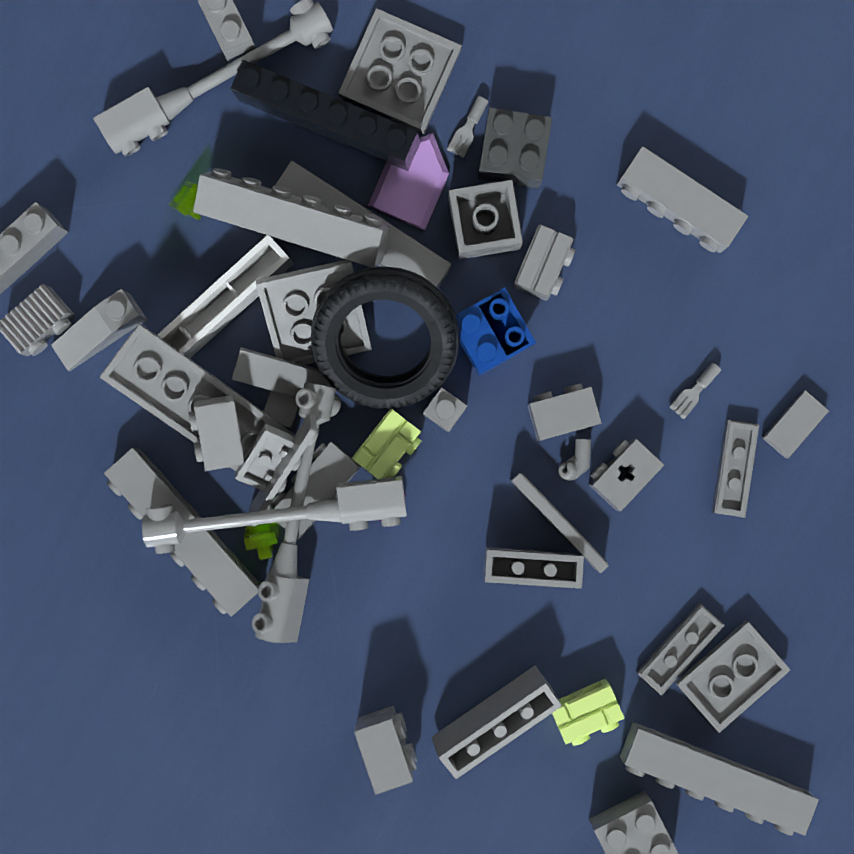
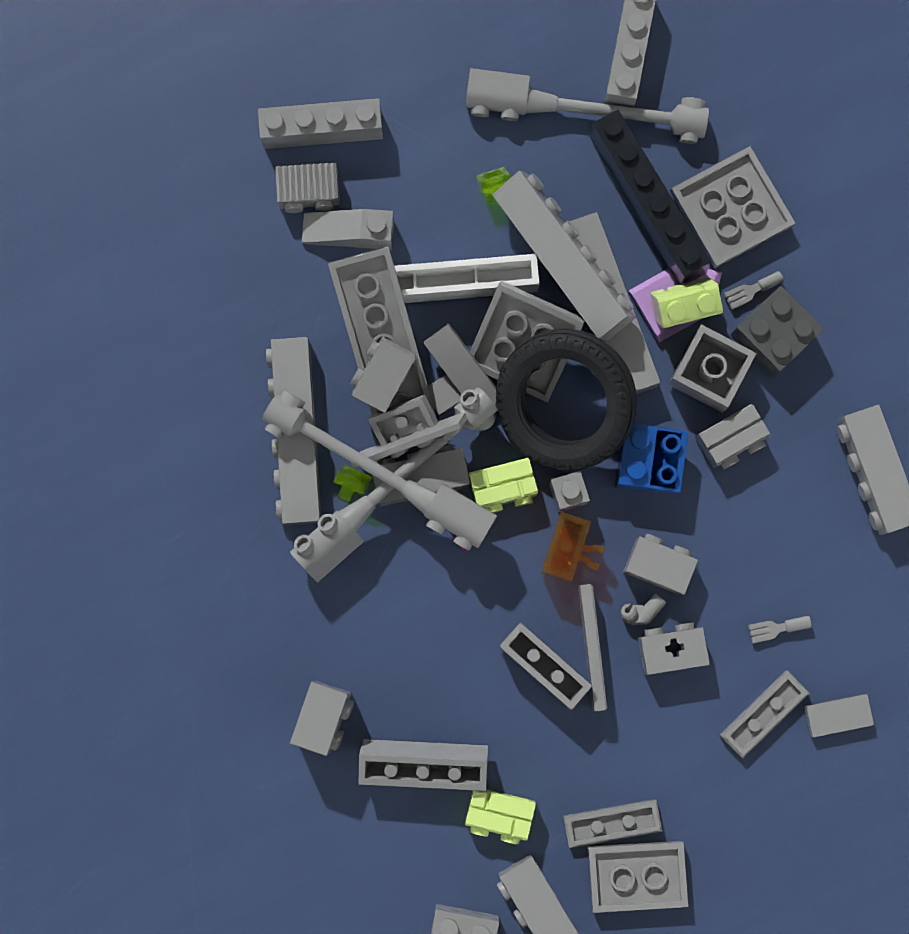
camera: 40 degrees right, 5 degrees down
(423, 180) = (686, 302): none -> yellowish green brick
(477, 457) = (566, 548): none -> clear orange brick

